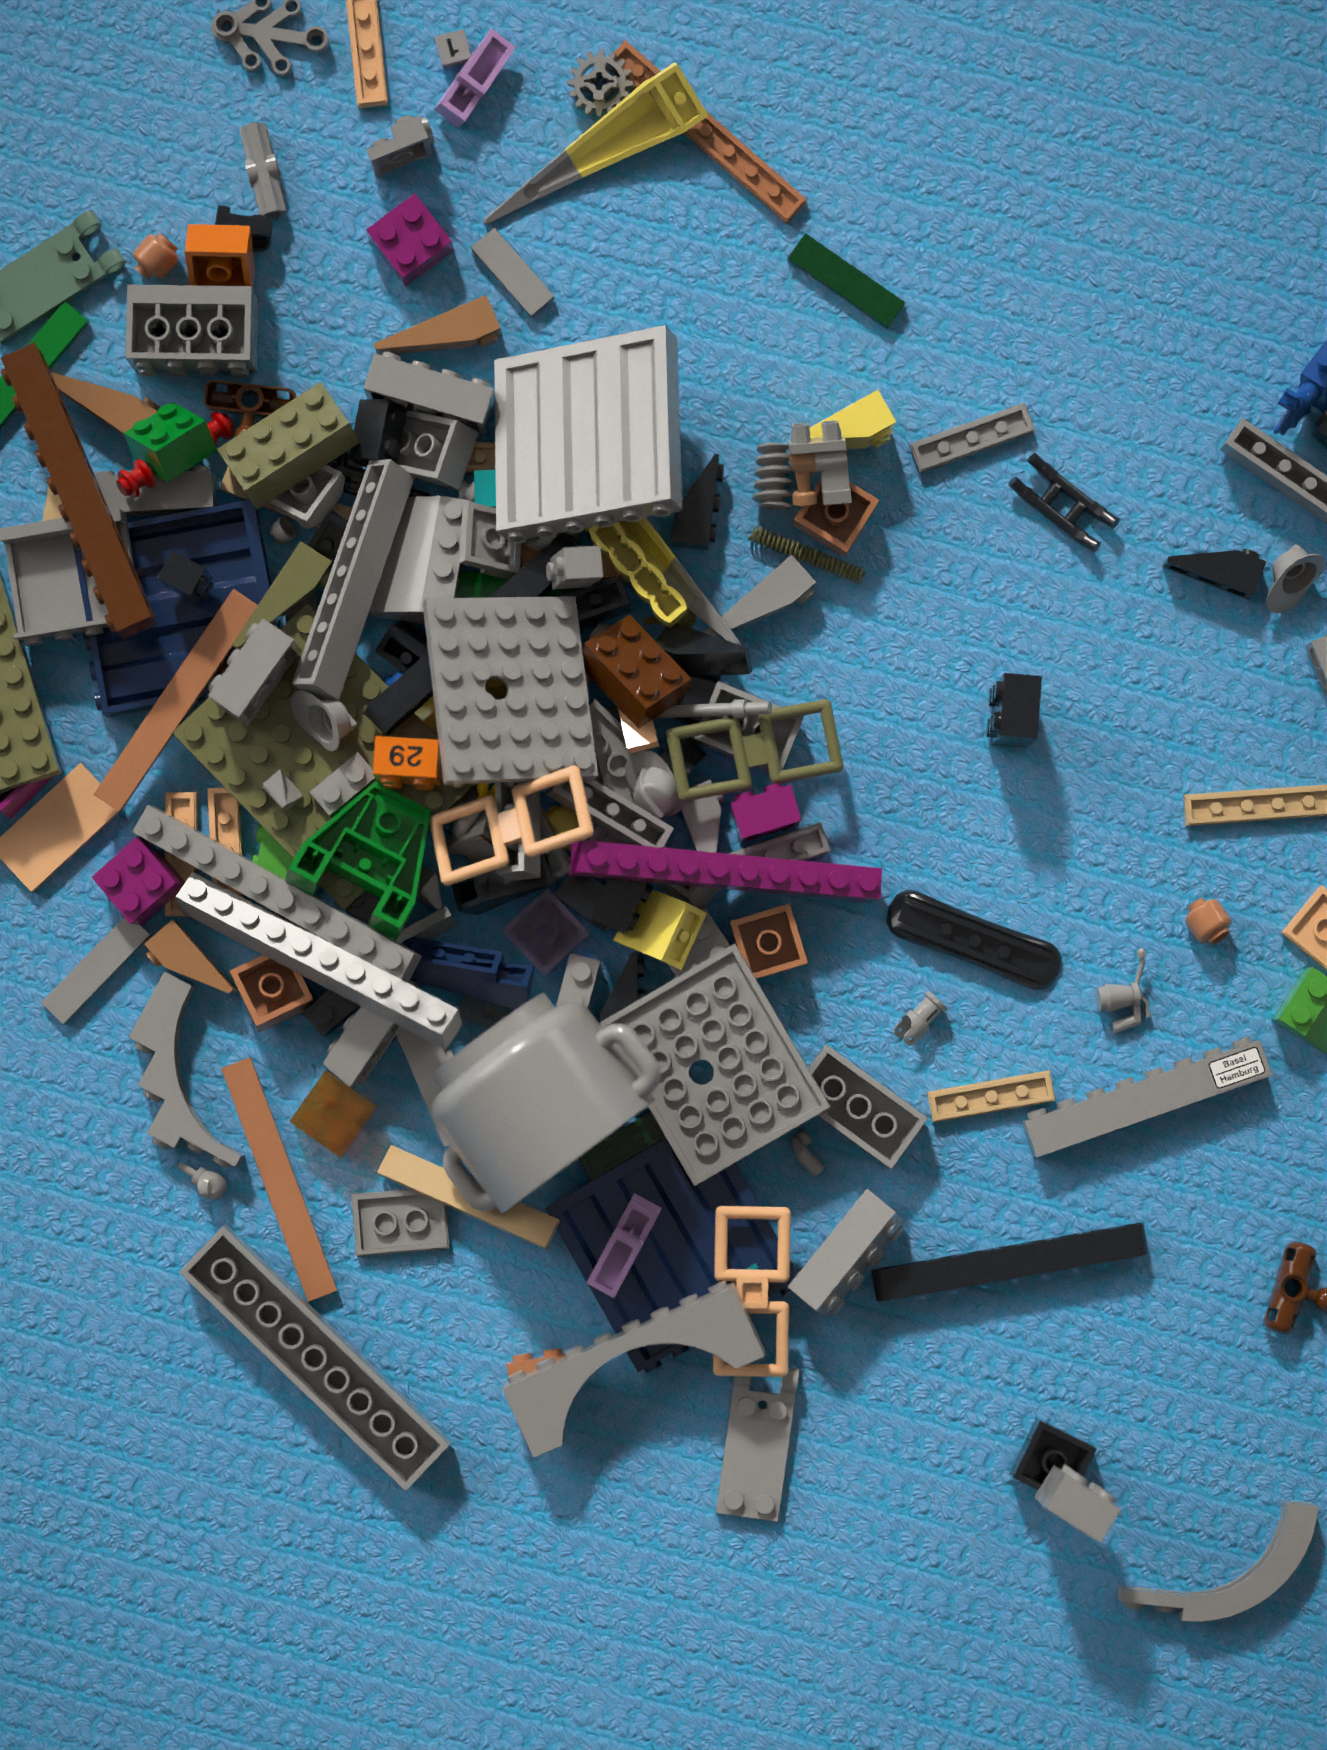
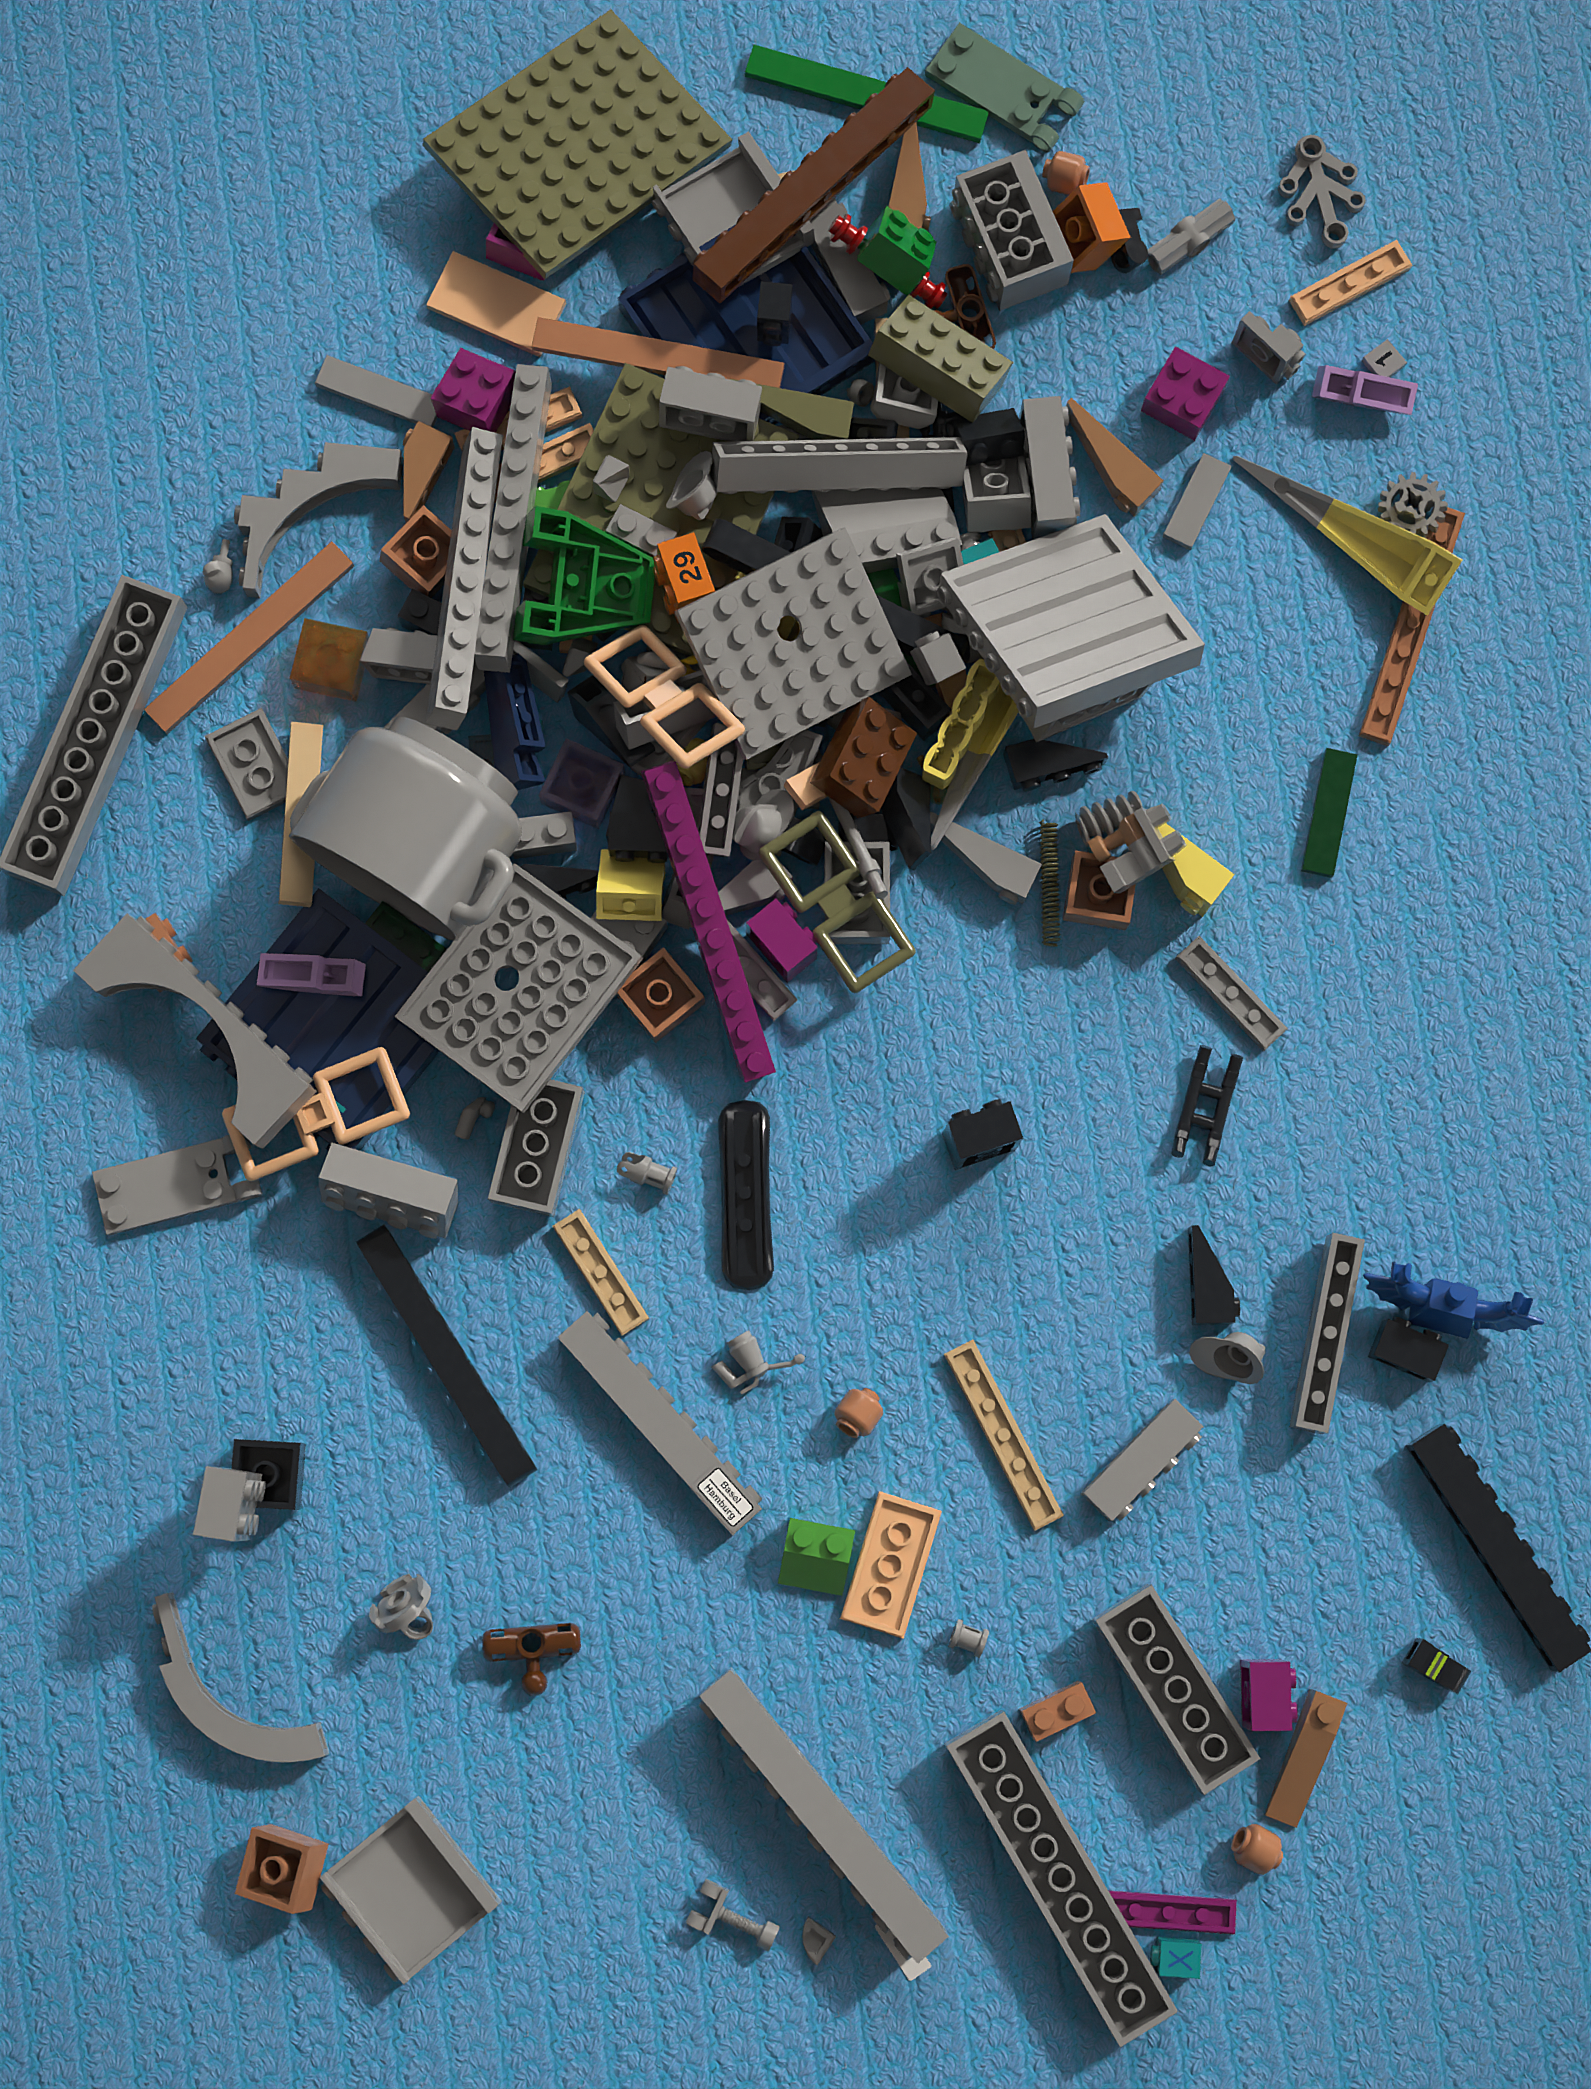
camera: 65 degrees right, 5 degrees down
(1215, 1387) = (401, 1604): none -> light grey tile

